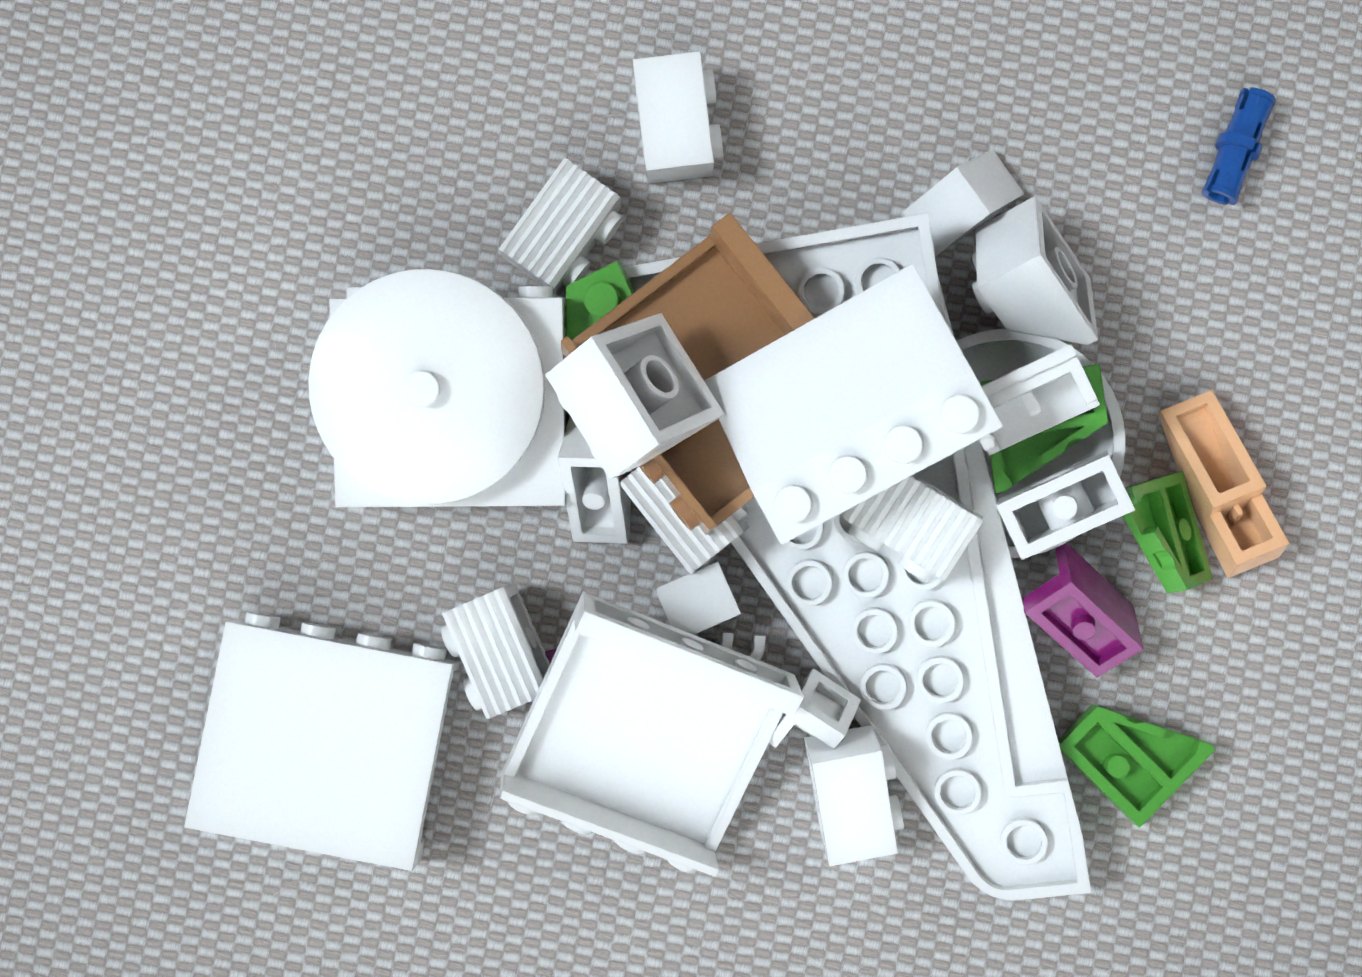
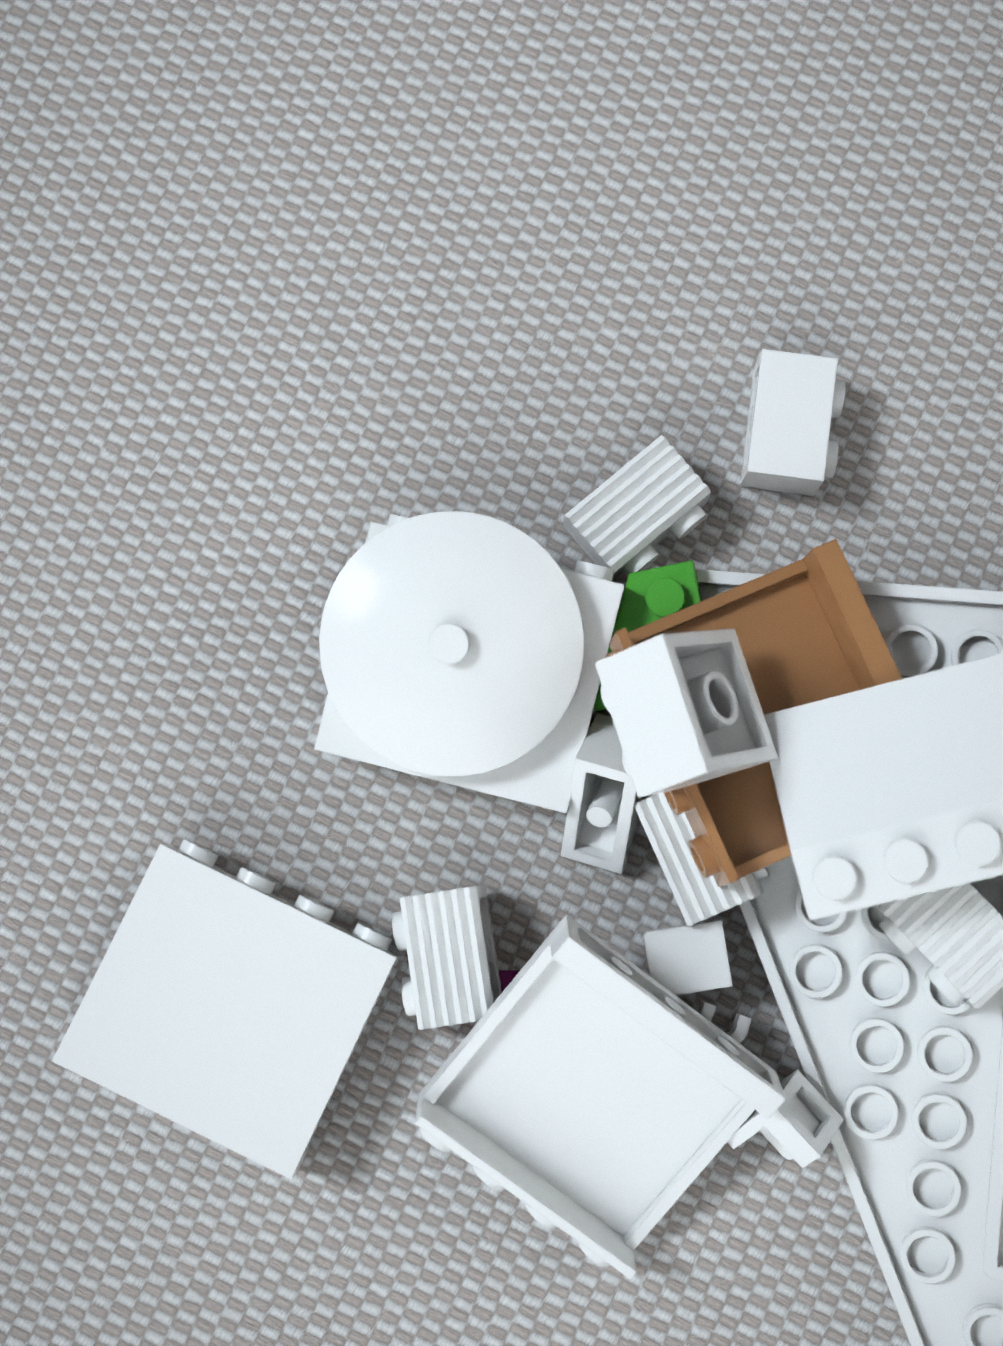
camera: 20 degrees right, 5 degrees down
(853, 796) = (808, 1229): white brick -> none

